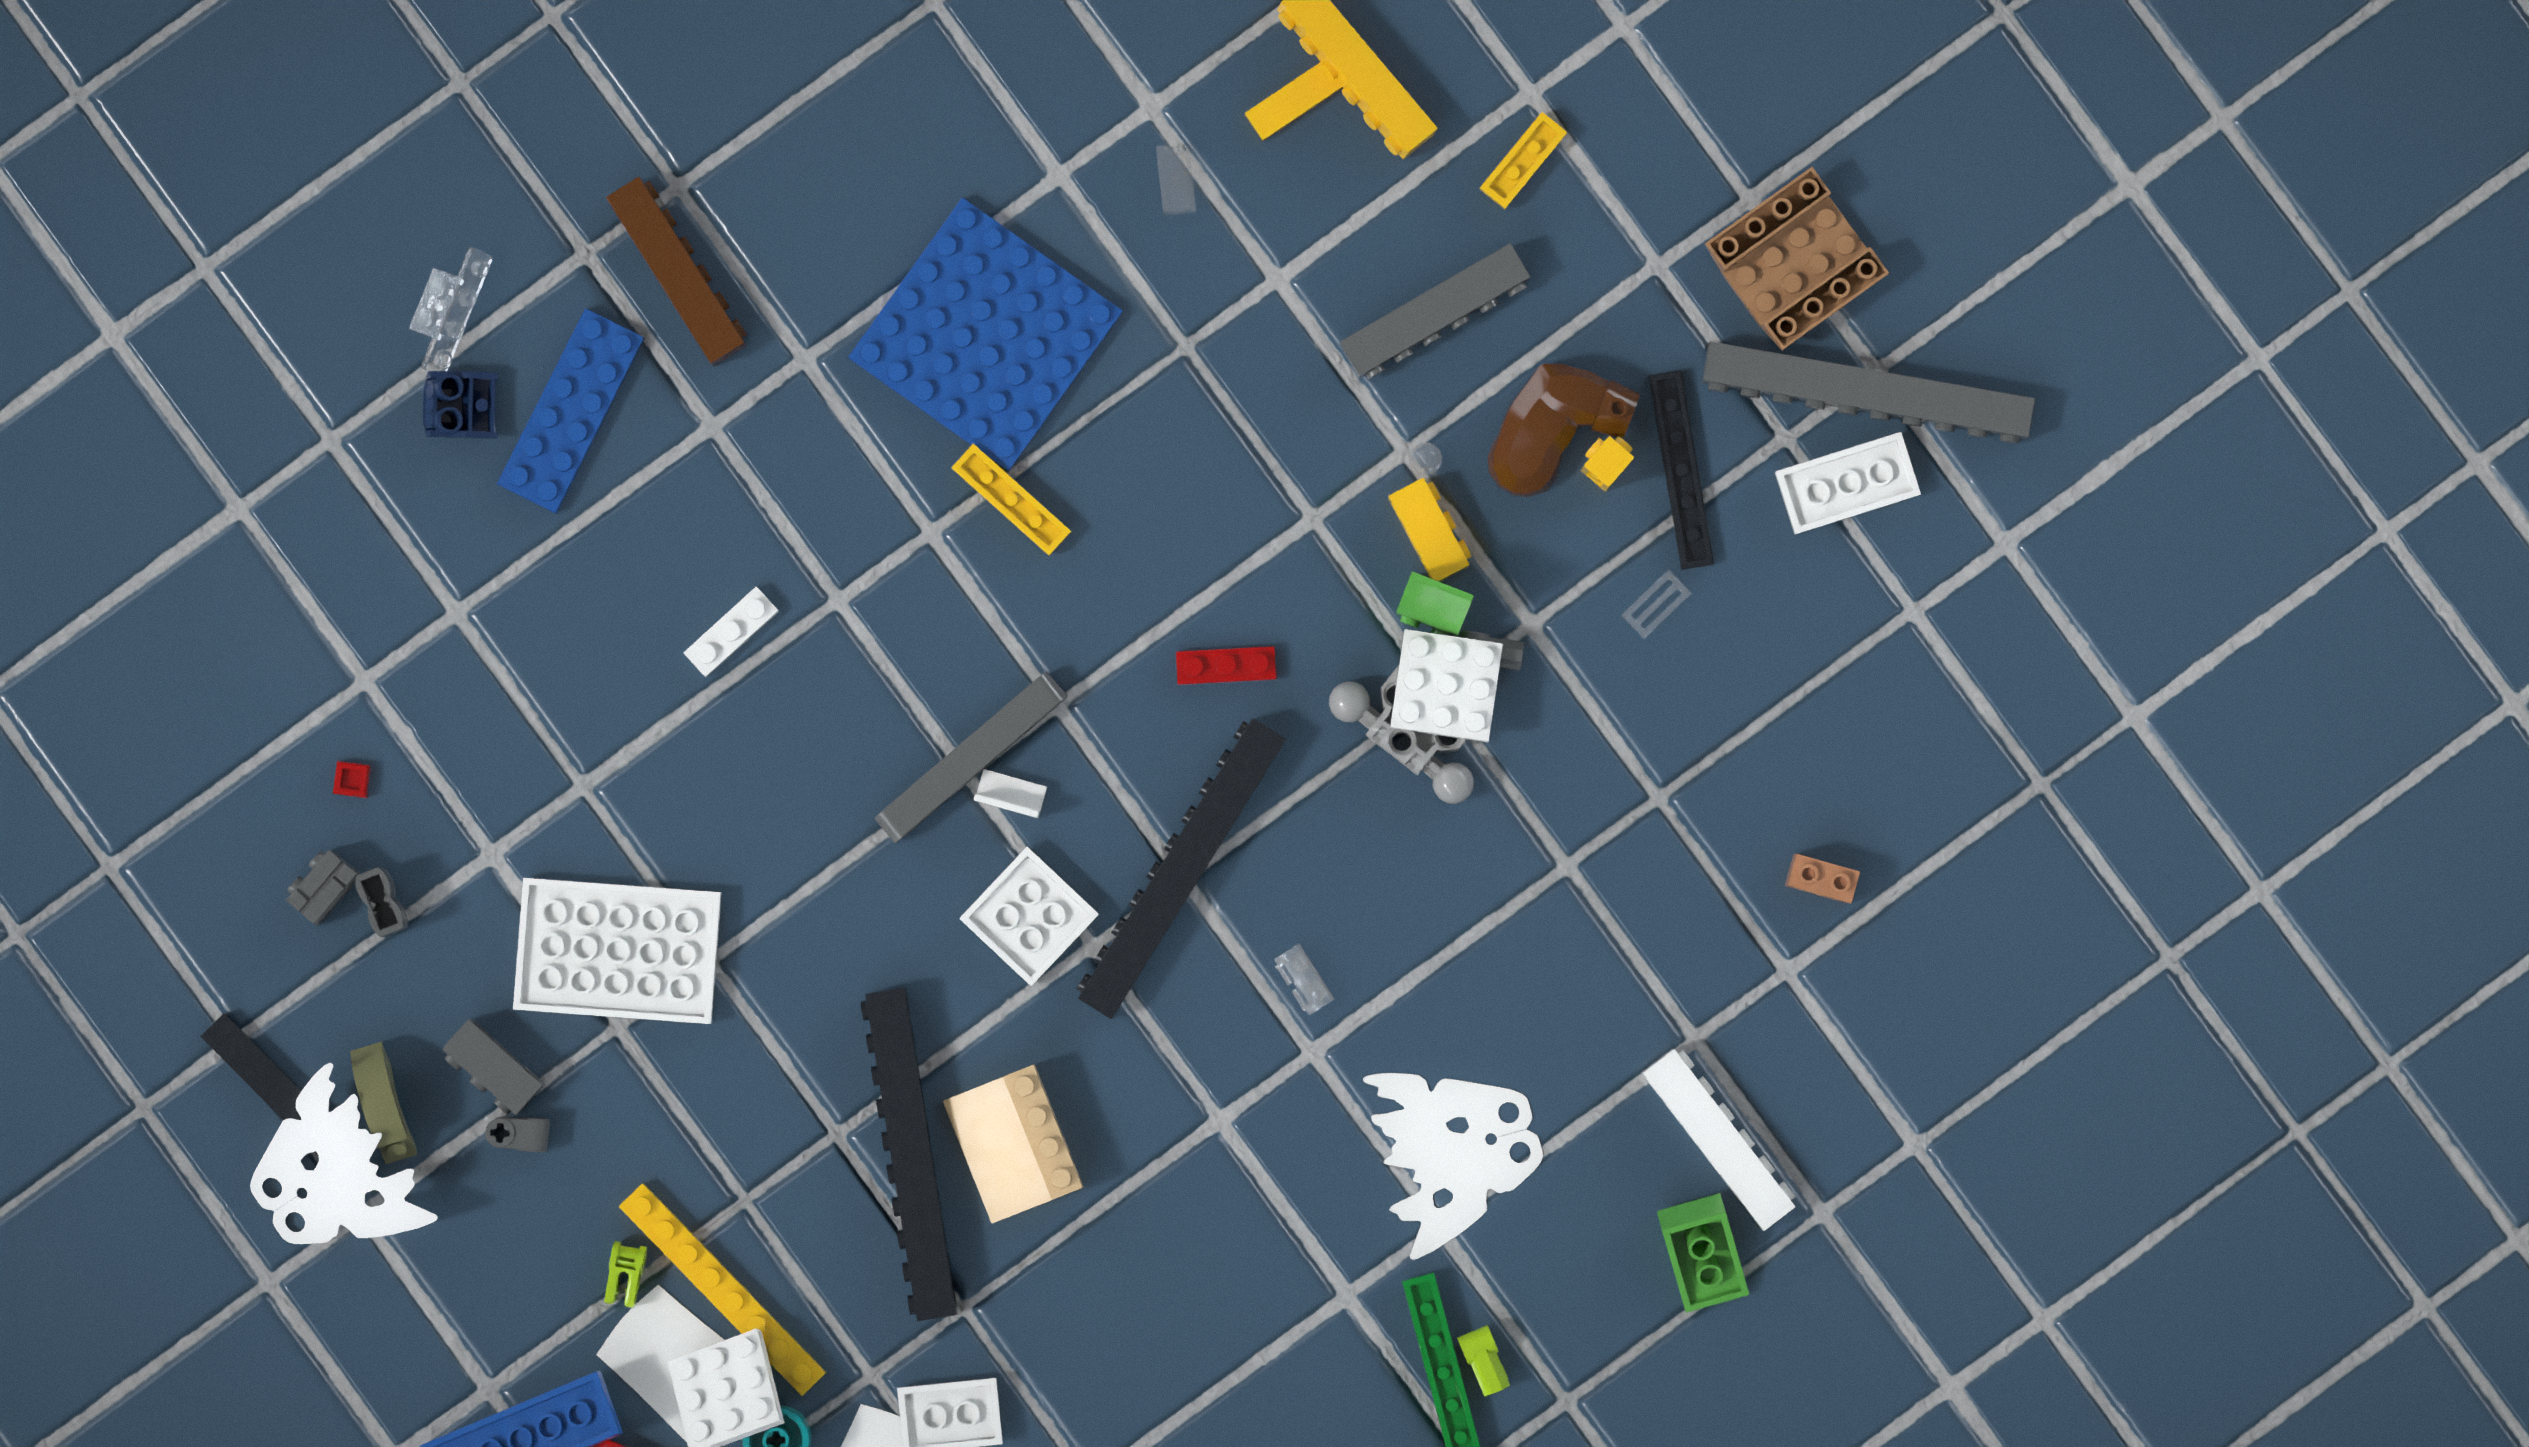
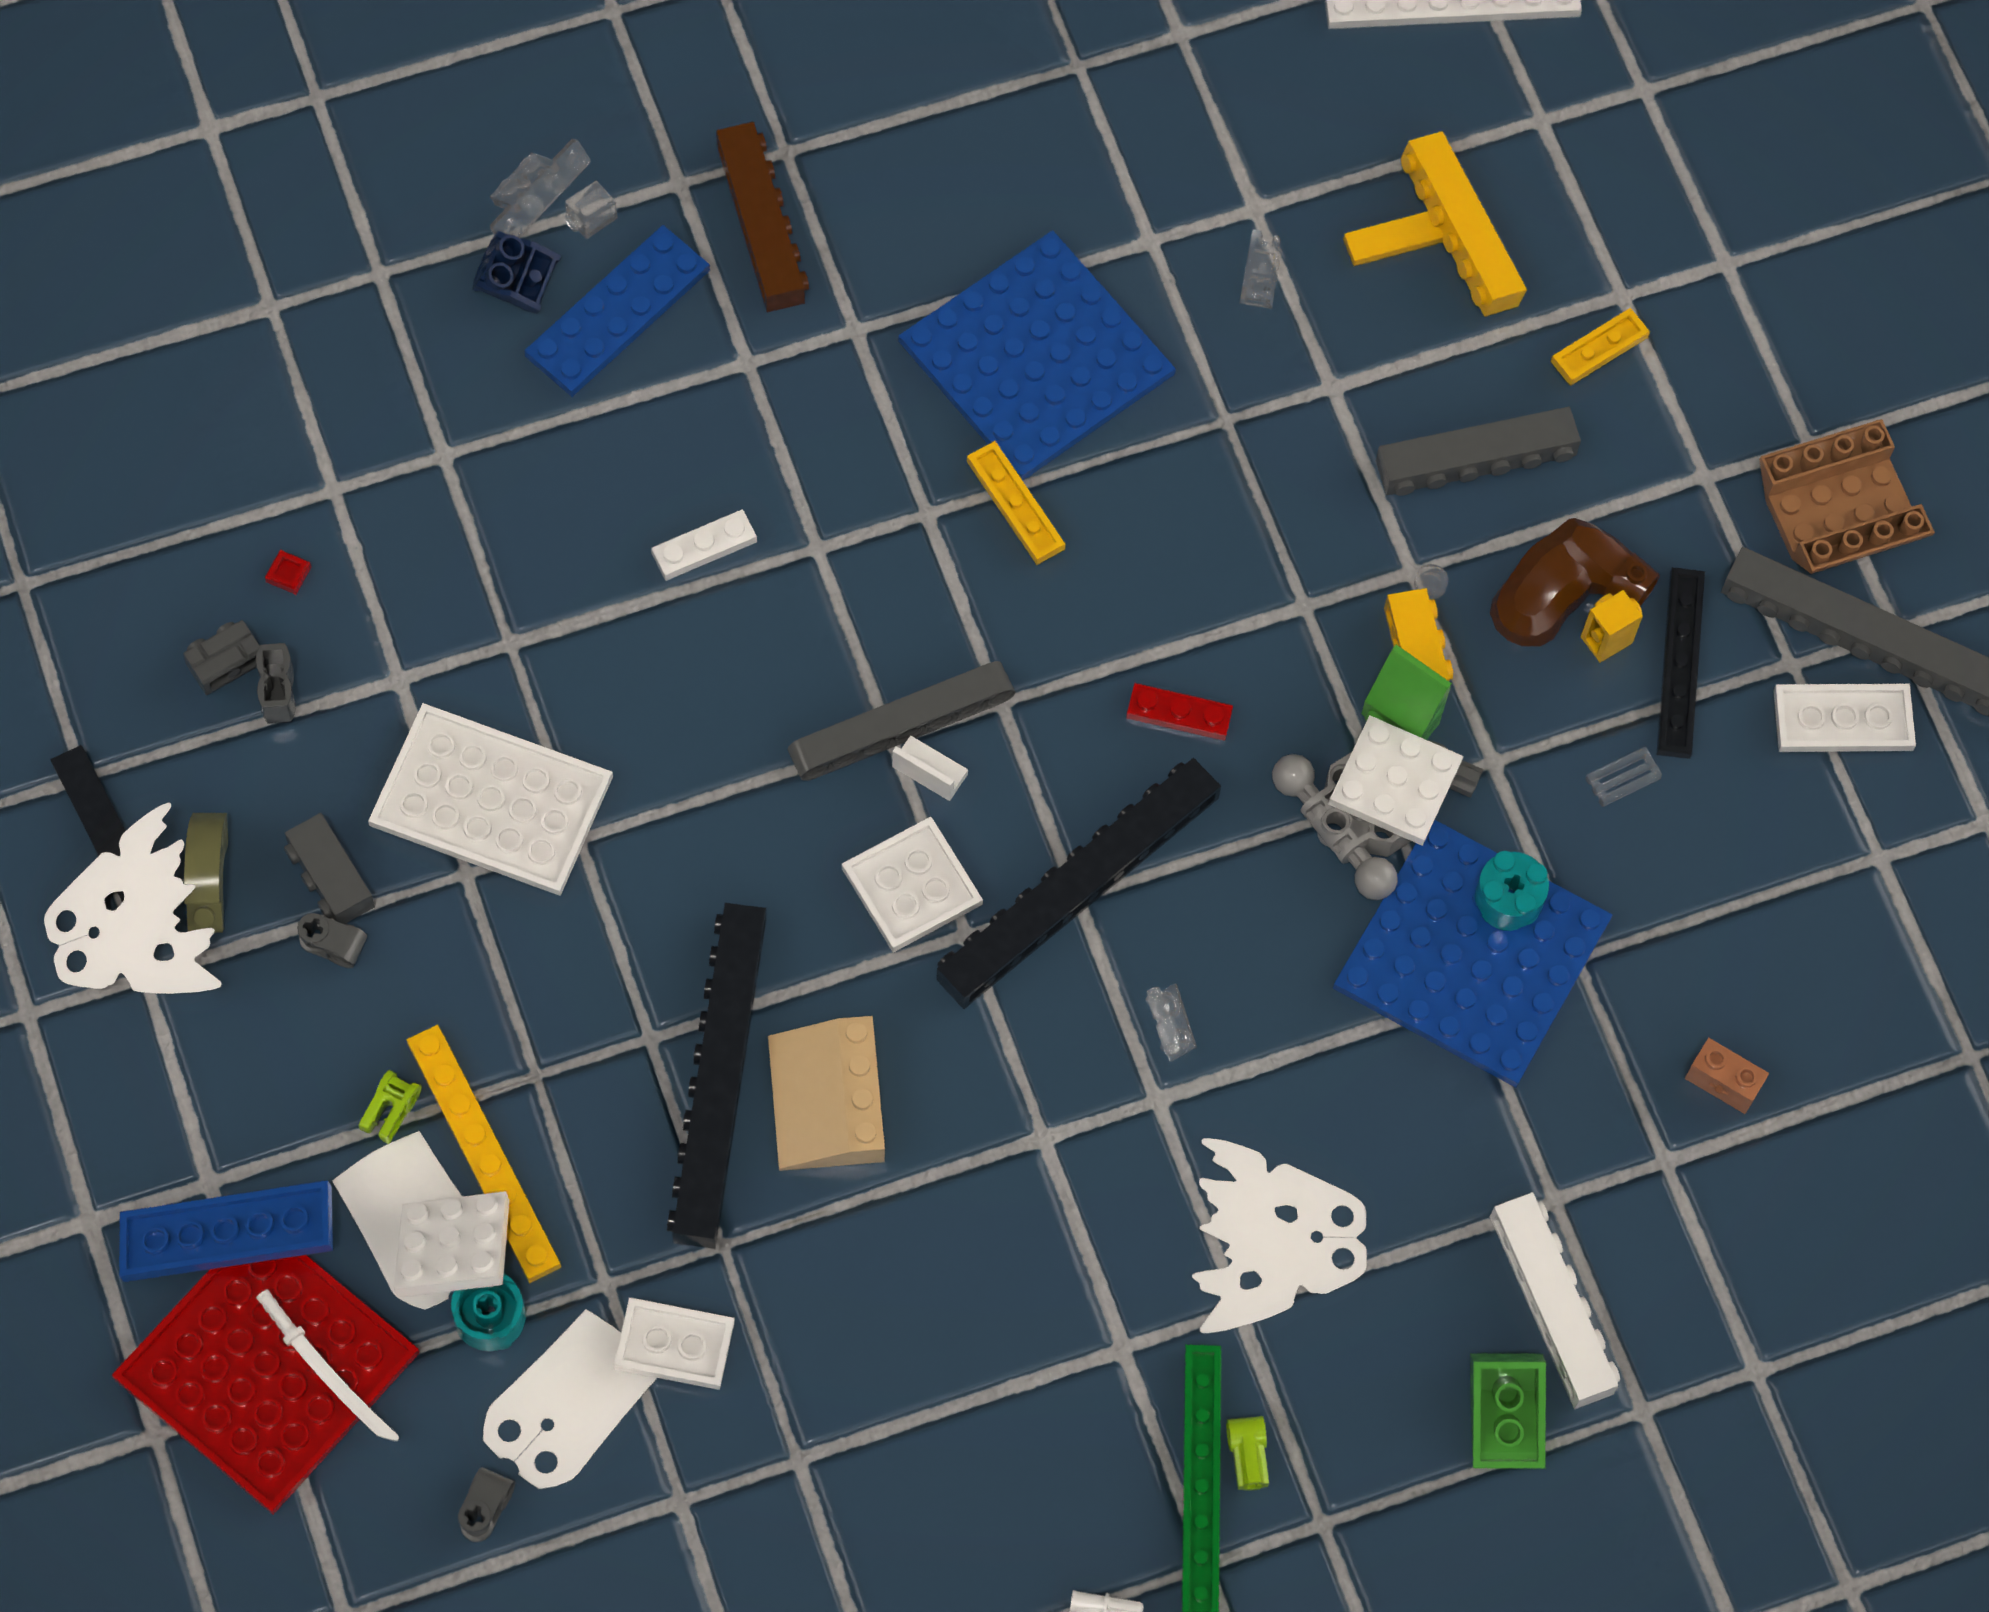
camera: 10 degrees right, 20 degrees down
(510, 316) = (590, 210): none -> clear brick
(1561, 823) = (1456, 977): none -> blue plate
(1596, 752) = (1513, 872): none -> teal brick

